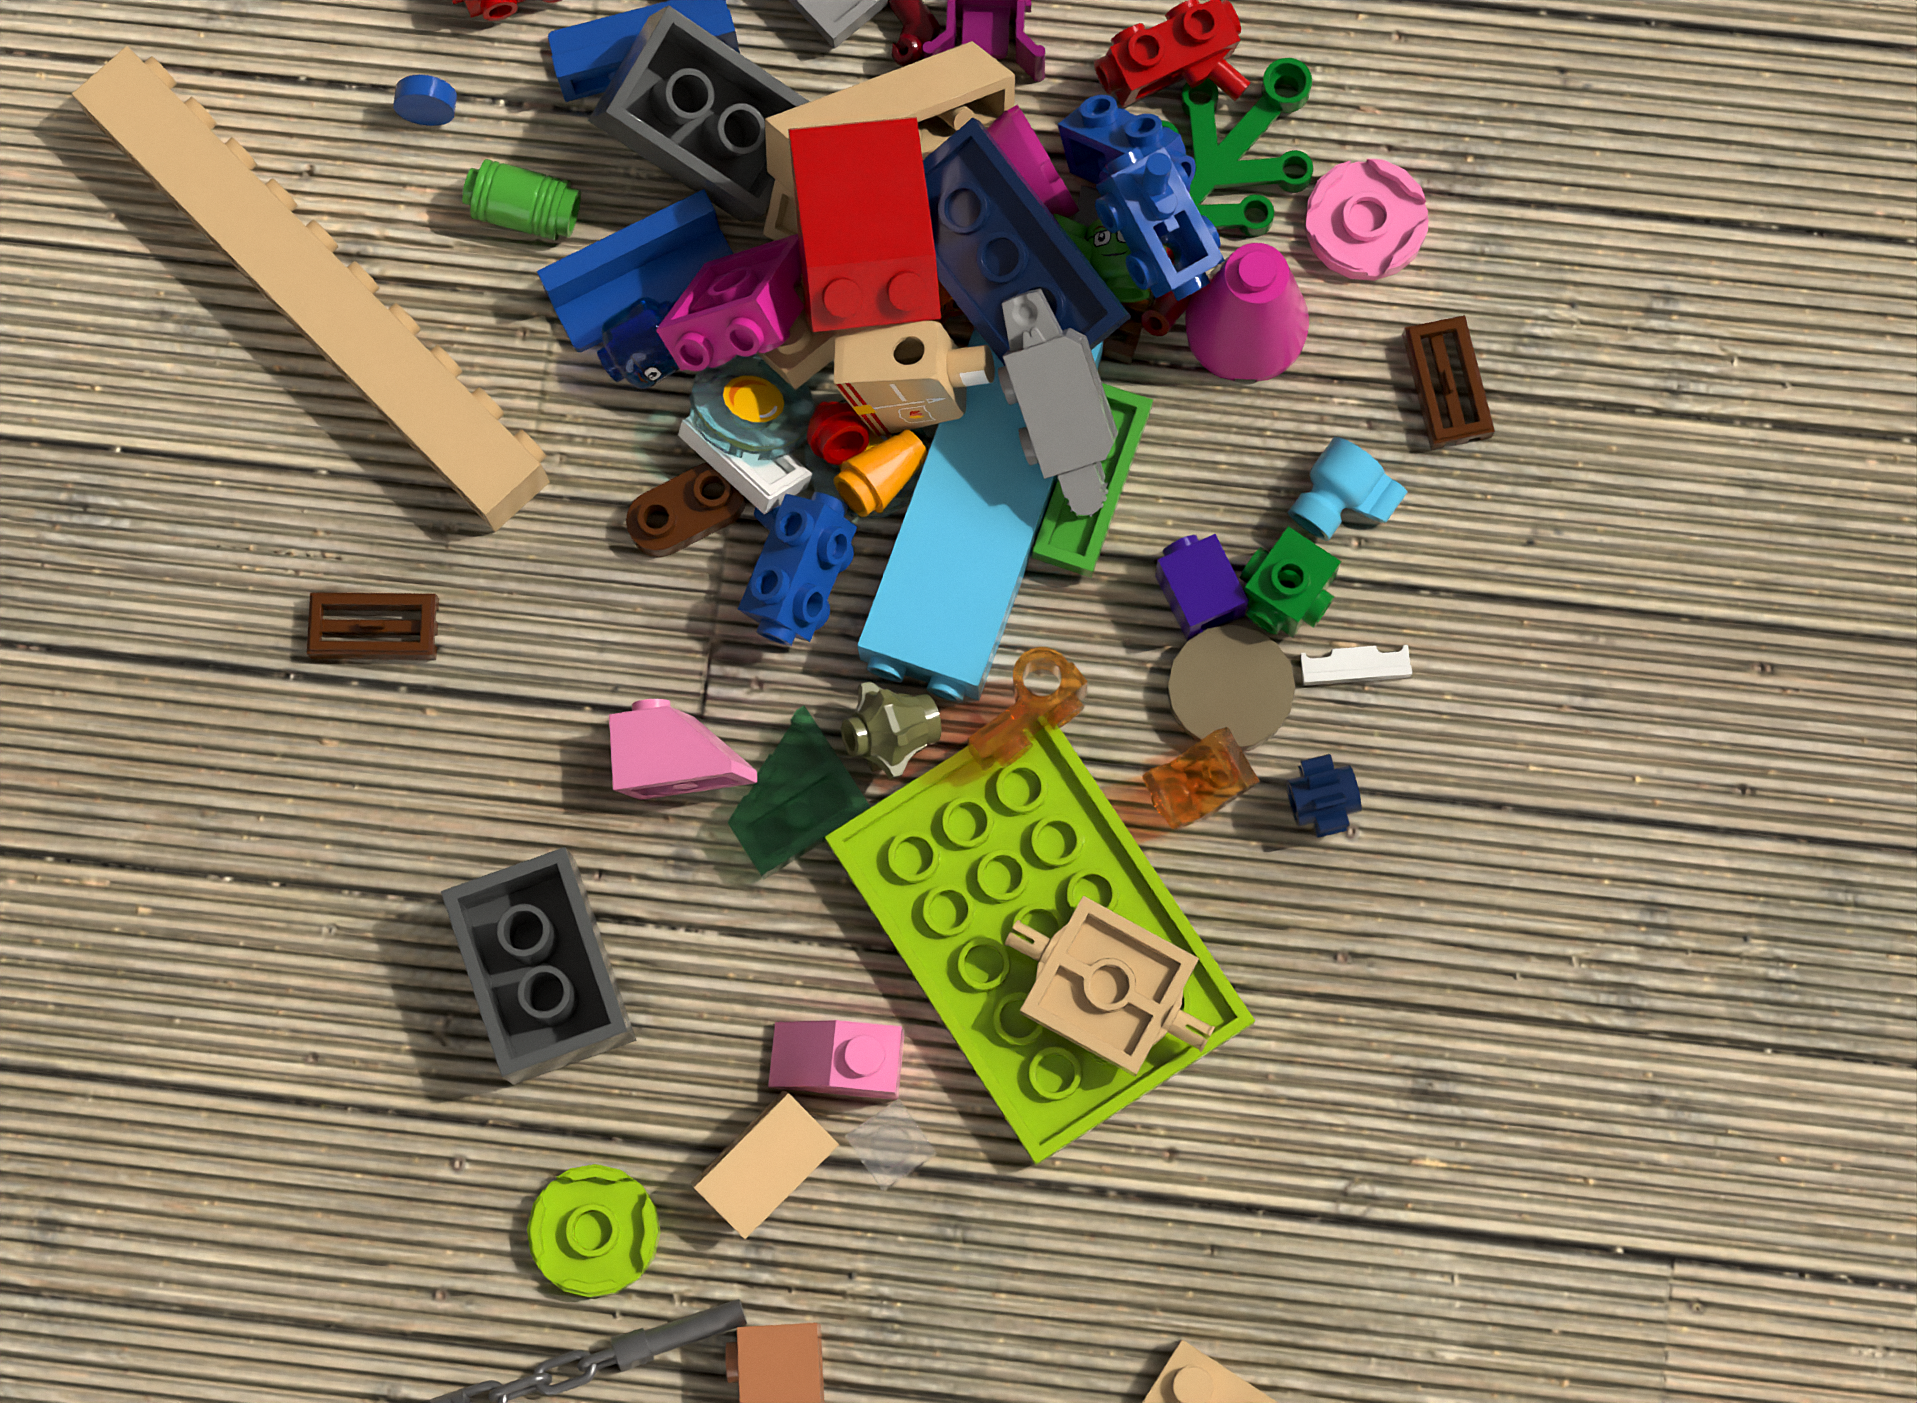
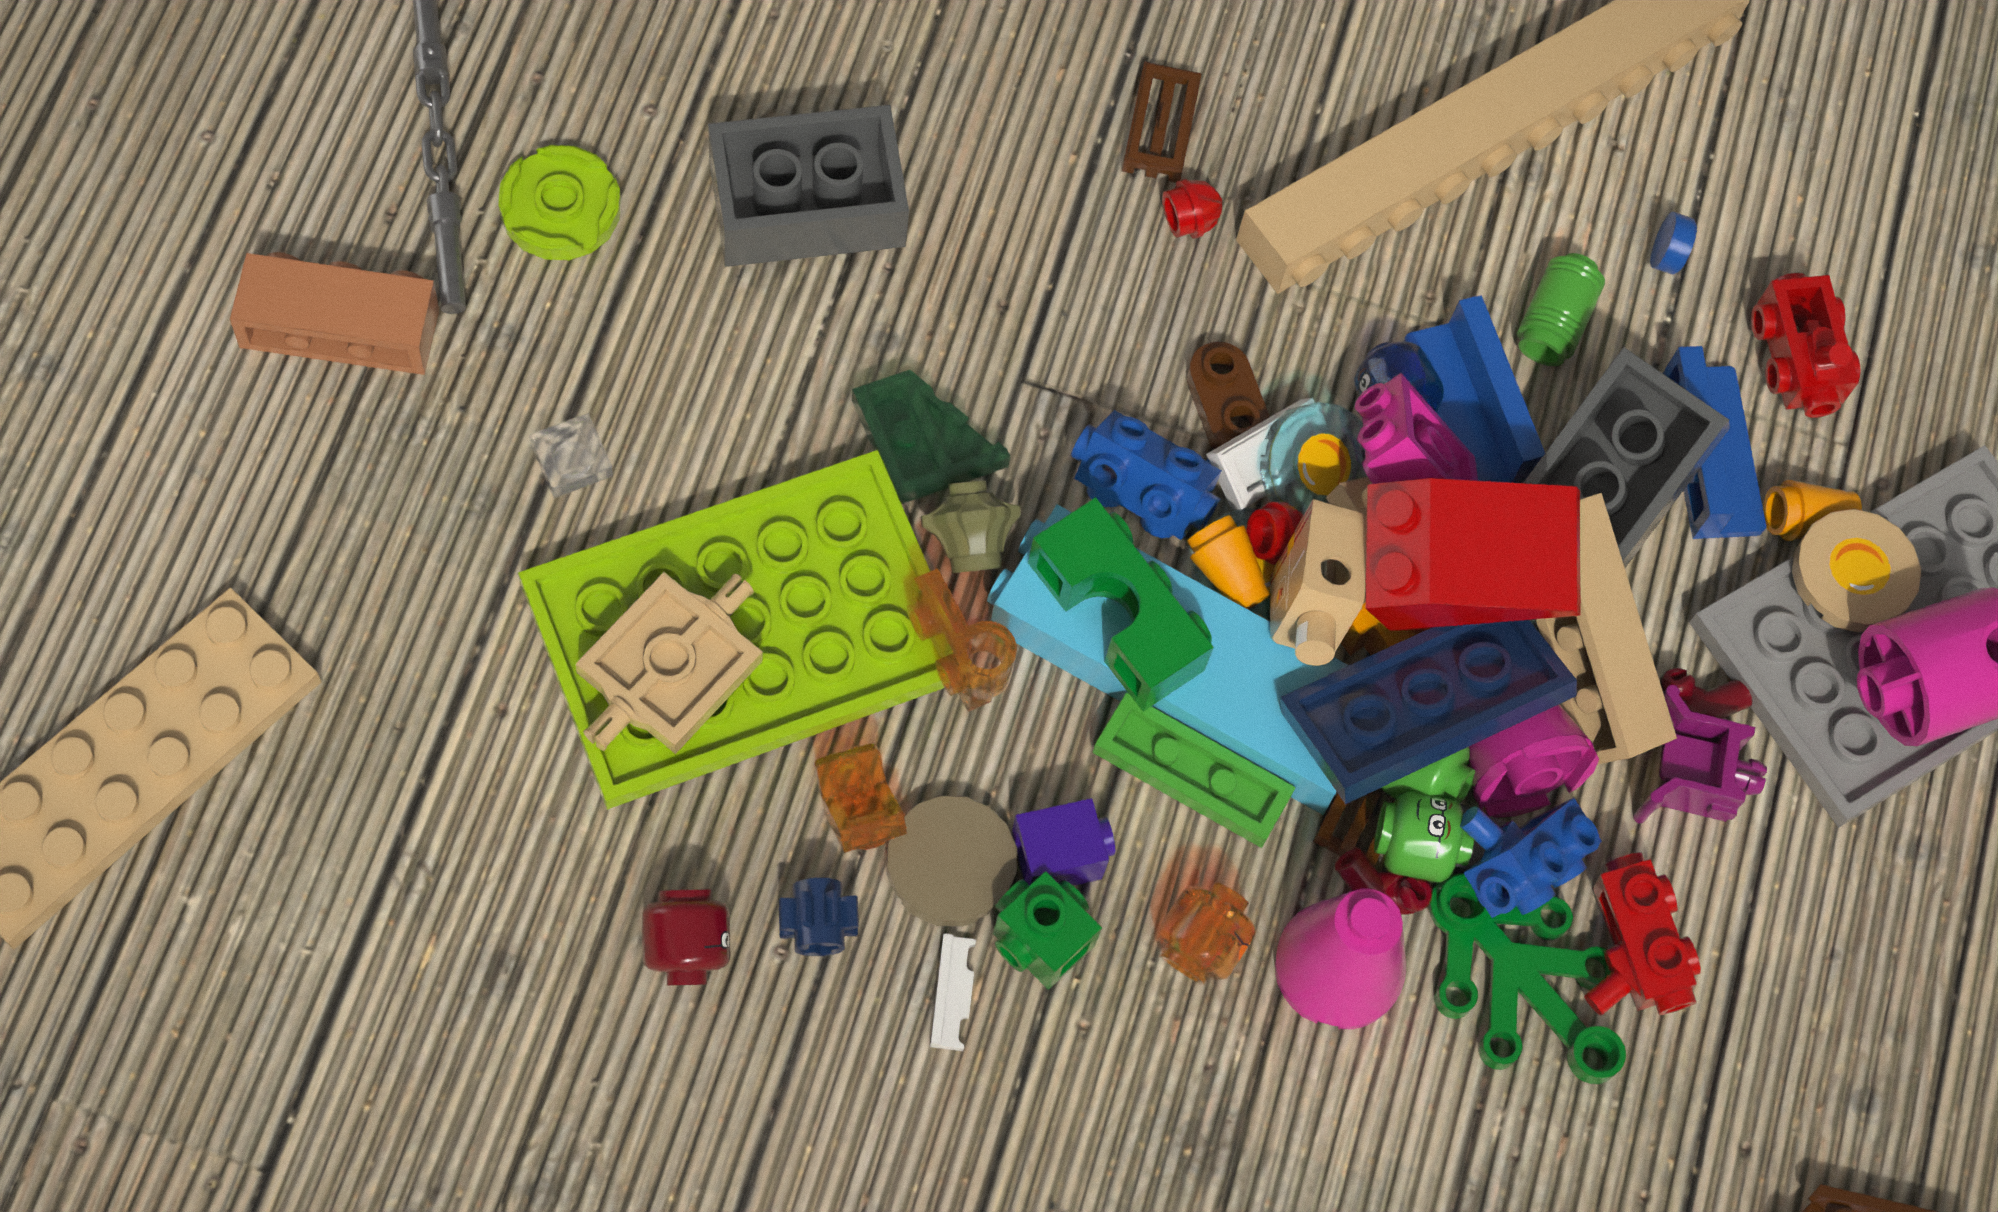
camera: 85 degrees right, 10 degrees down
(476, 576) = (1191, 208): none -> red plate
(670, 753) = (988, 331): bright pink slope -> none
(764, 1164) = (581, 343): tan hinge -> none
(837, 1058) = (660, 431): bright pink slope -> none
(997, 515) = (1095, 557): none -> green arch
(1059, 399) = (1263, 712): light grey hinge -> none
(1152, 210) = (1462, 834): blue brick -> none
(1256, 439) = (1206, 932): none -> clear orange head
(1341, 480) = (1148, 1020): medium azure piece -> none
(1366, 219) = (1436, 1111): bright pink tile -> none
(1369, 915) = (686, 935): none -> dark red head
(1459, 431) = (1241, 1181): reddish brown tile -> none

